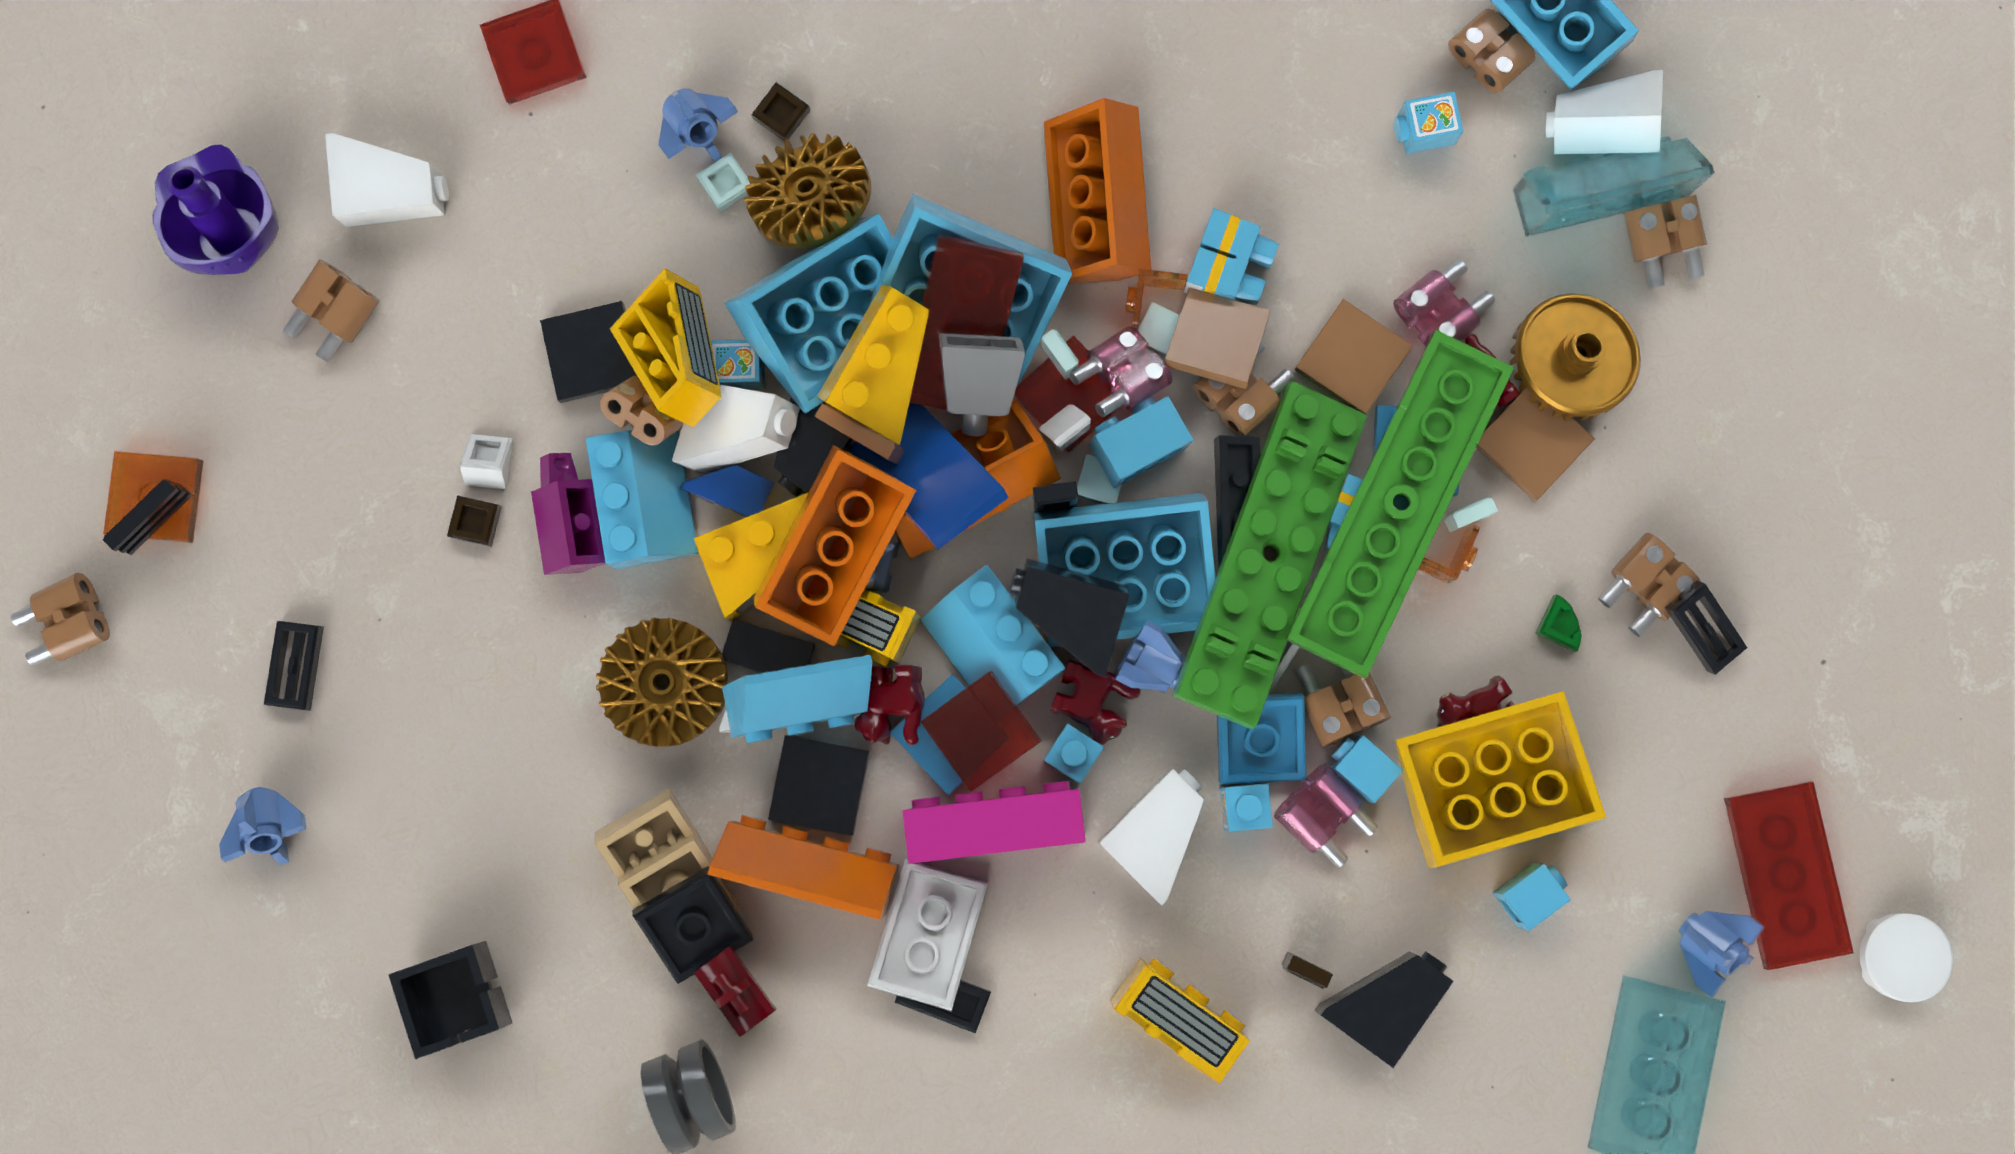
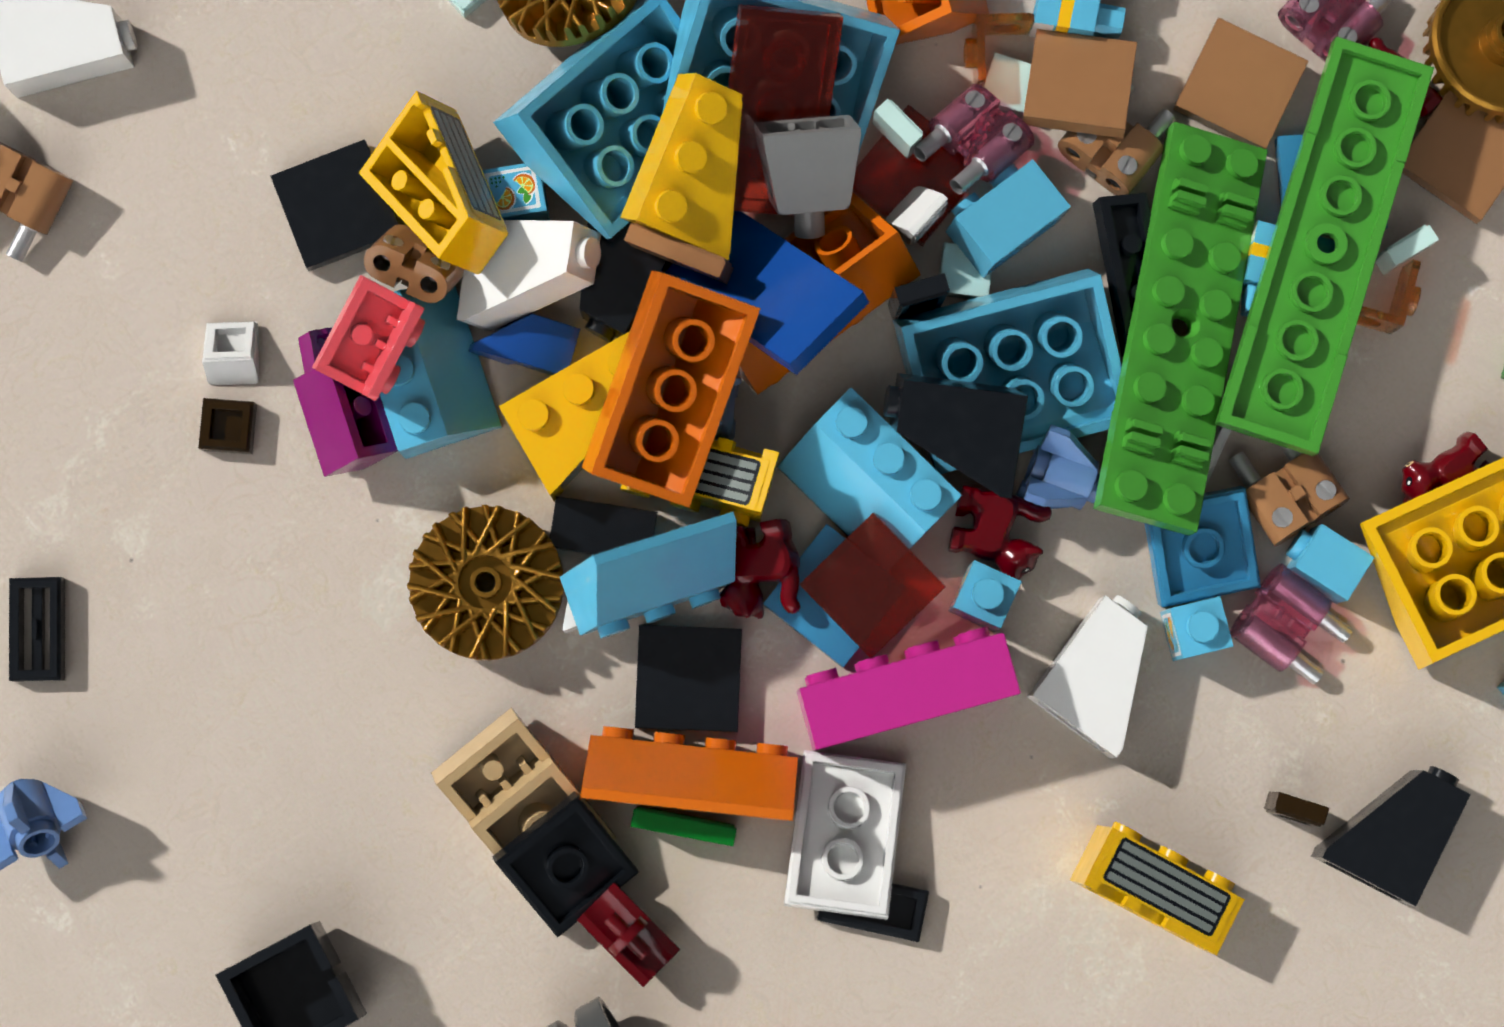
camera: 20 degrees left, 0 degrees up
(593, 468) = (370, 339): none -> coral bracket
(796, 908) = (683, 825): none -> green tile

